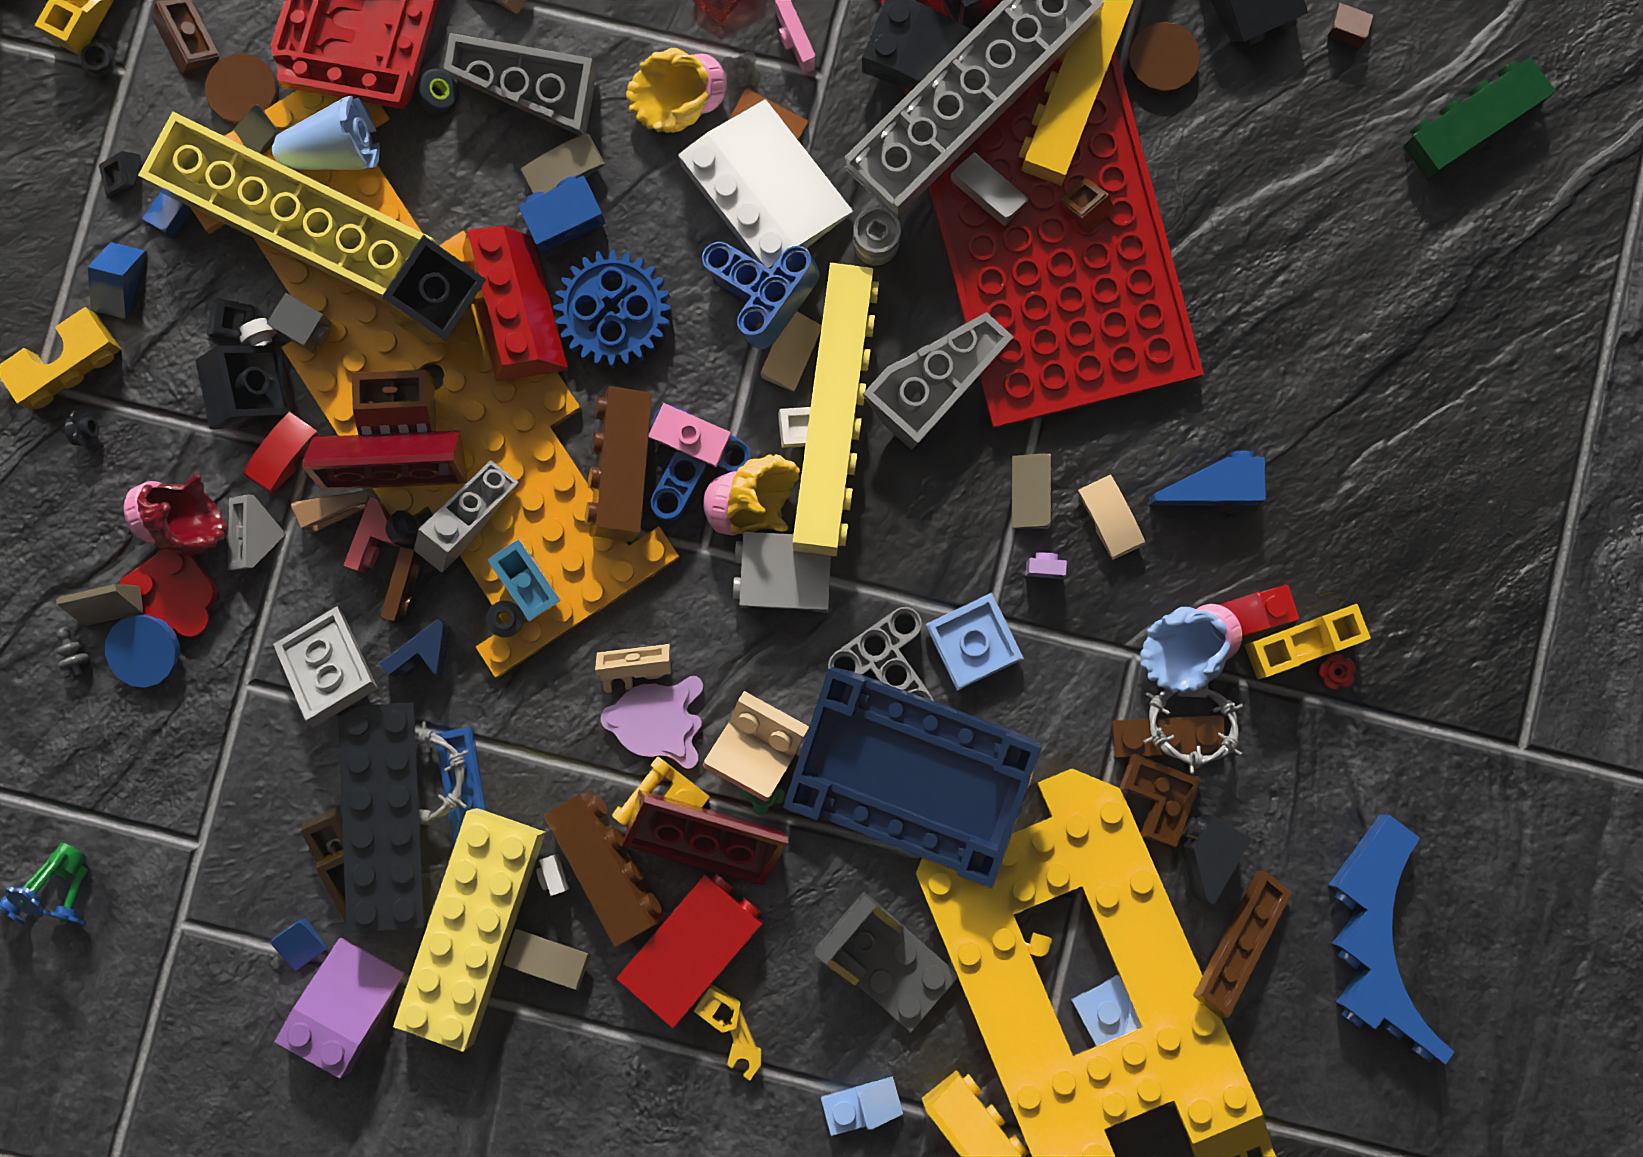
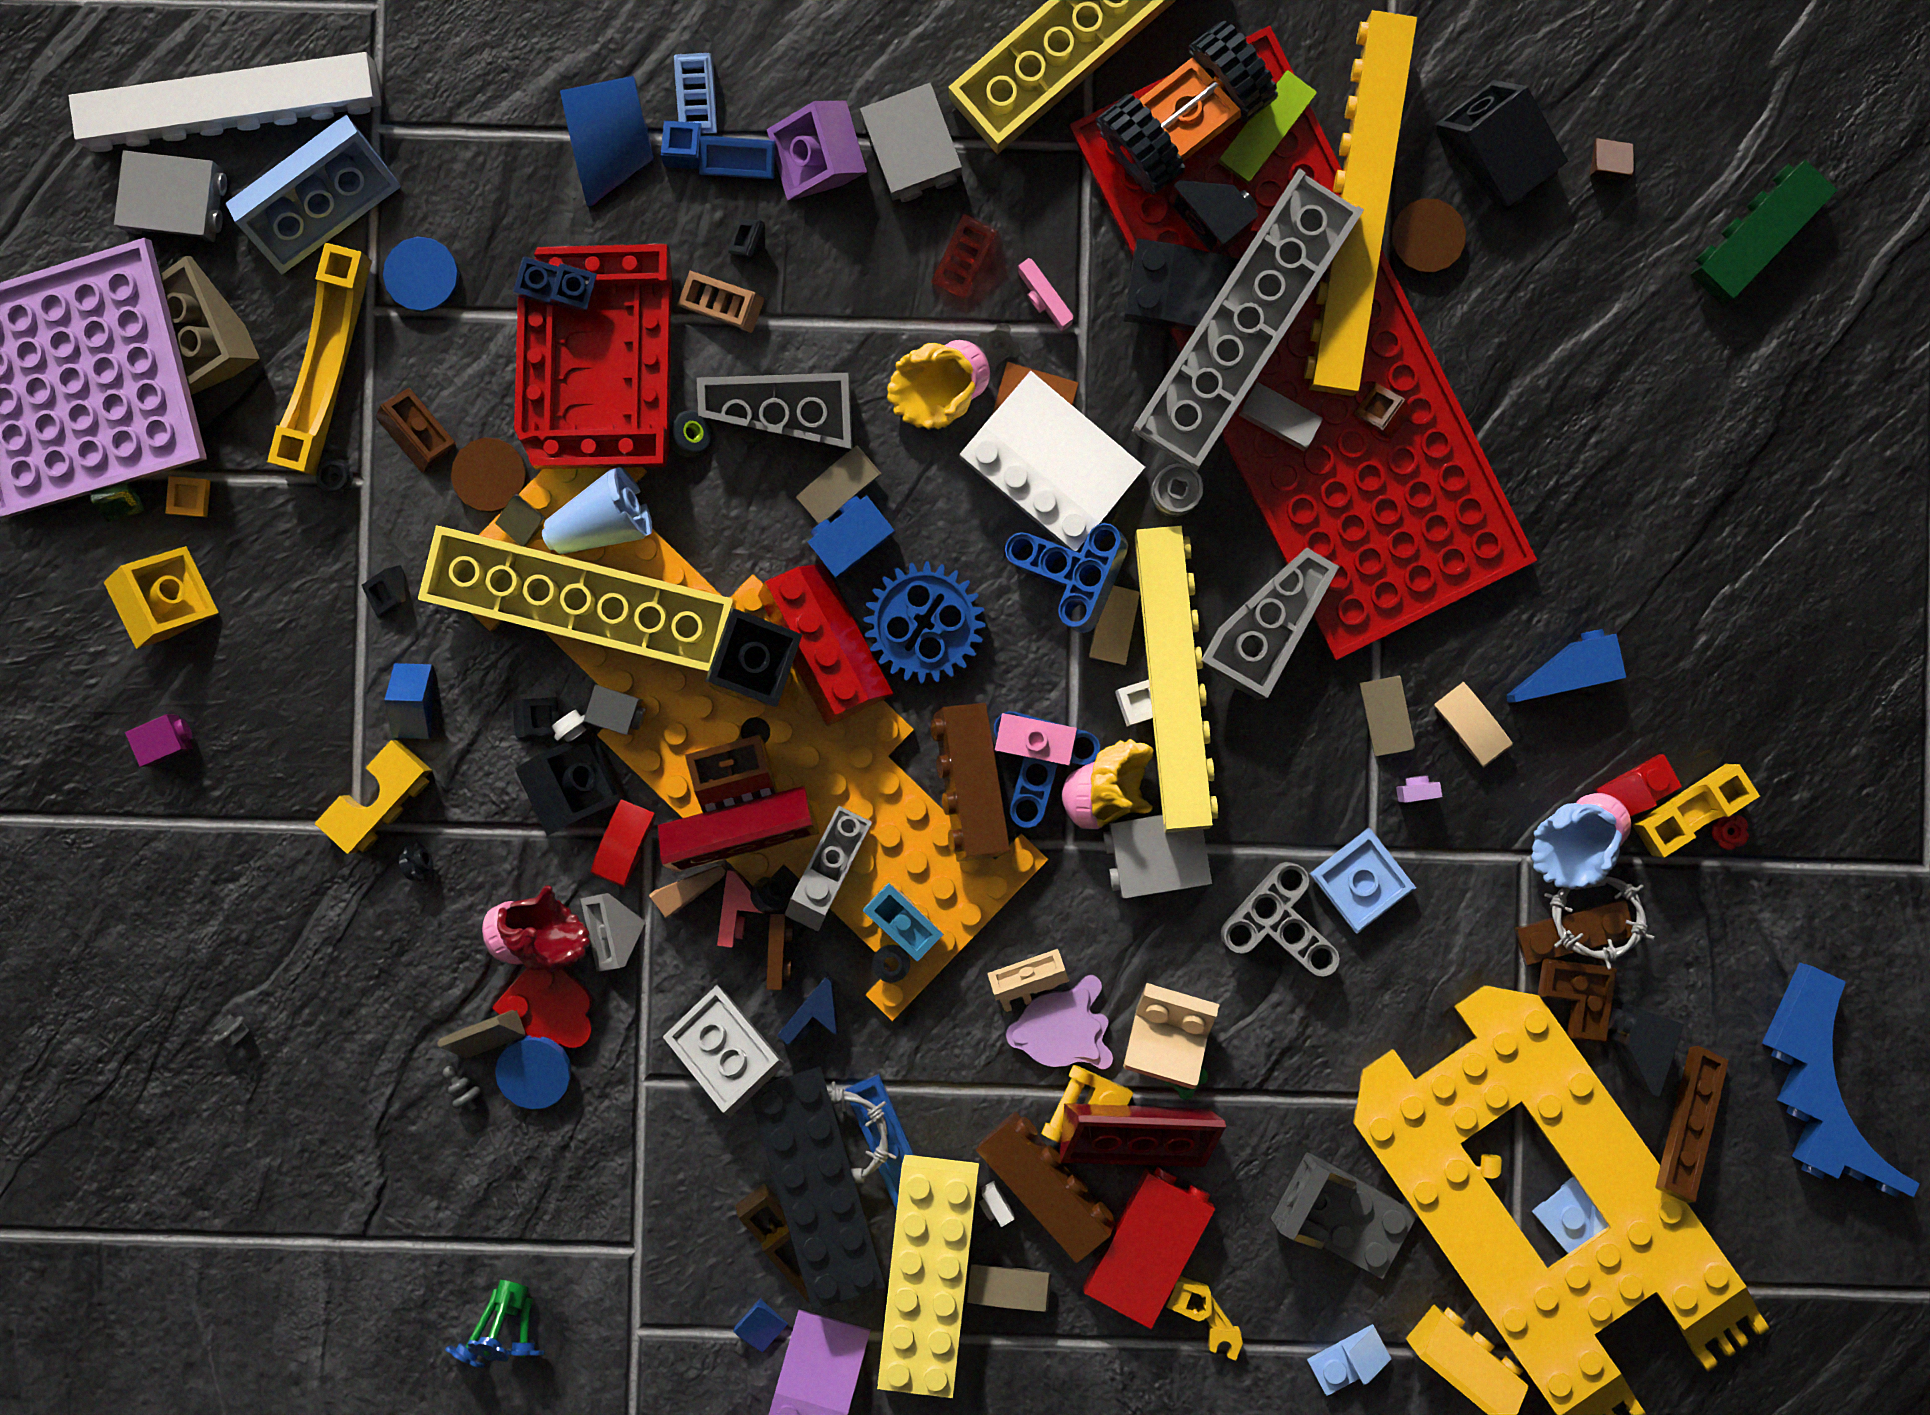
camera: 10 degrees left, 5 degrees up
(167, 214) = (444, 623): blue slope -> none
(913, 774) = (1335, 1030): dark blue slope -> none

